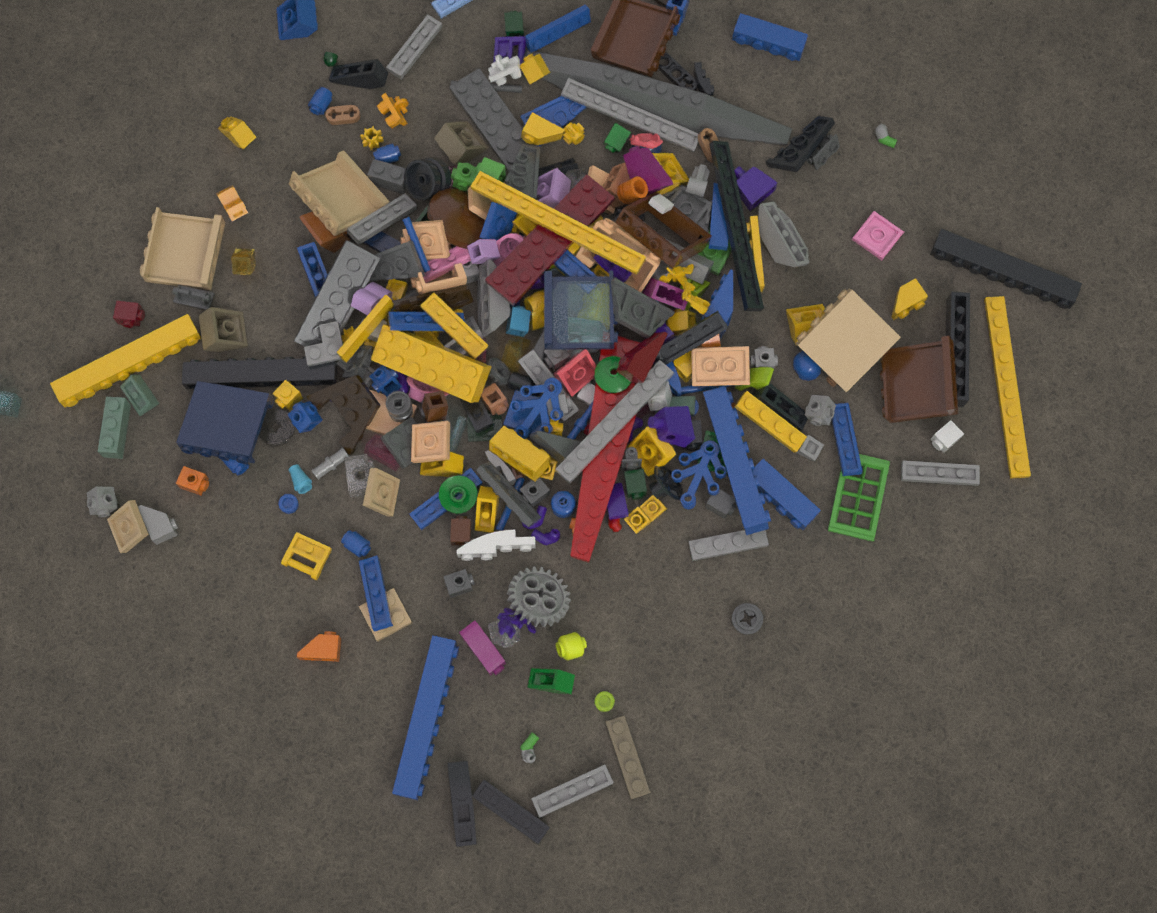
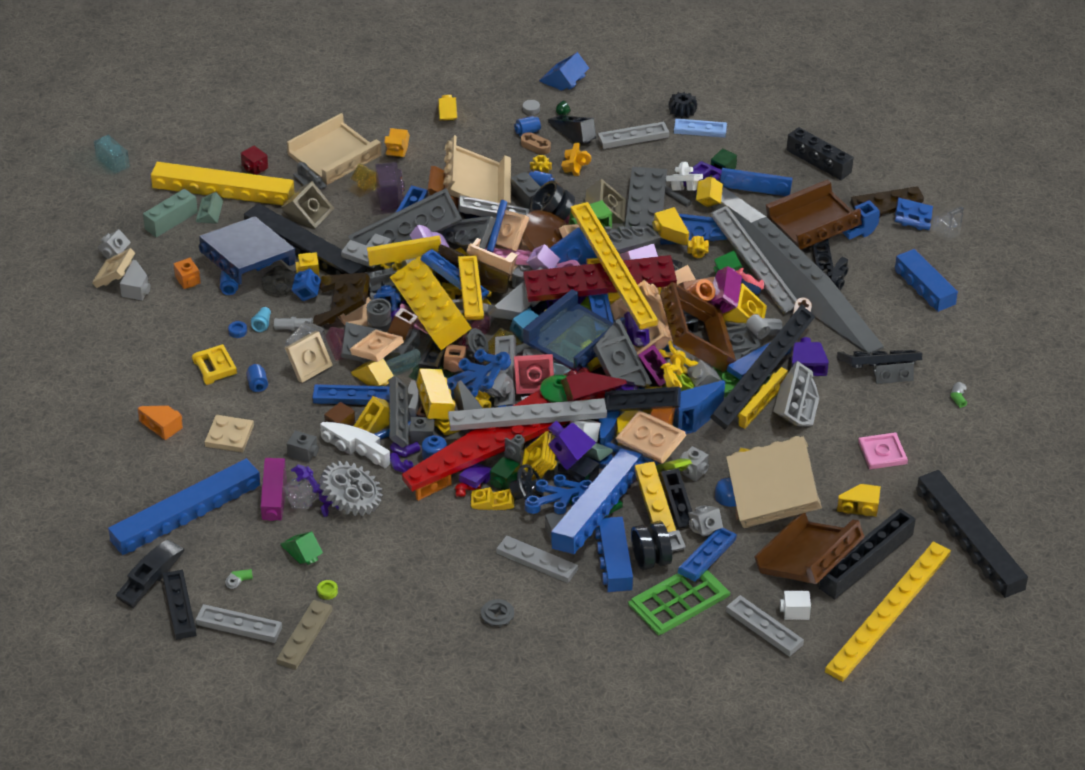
camera: 40 degrees right, 30 degrees down
(276, 260) = (389, 187): none -> clear purple brick
(301, 76) = (531, 107): none -> light grey tile
(375, 593) = (235, 409): blue plate -> none
(456, 485) = (361, 389): green dish -> none
(571, 646) = (341, 536): neon yellow head -> none
(661, 204) = (713, 312): white tile -> none
(808, 469) = (651, 545): none -> black wheel

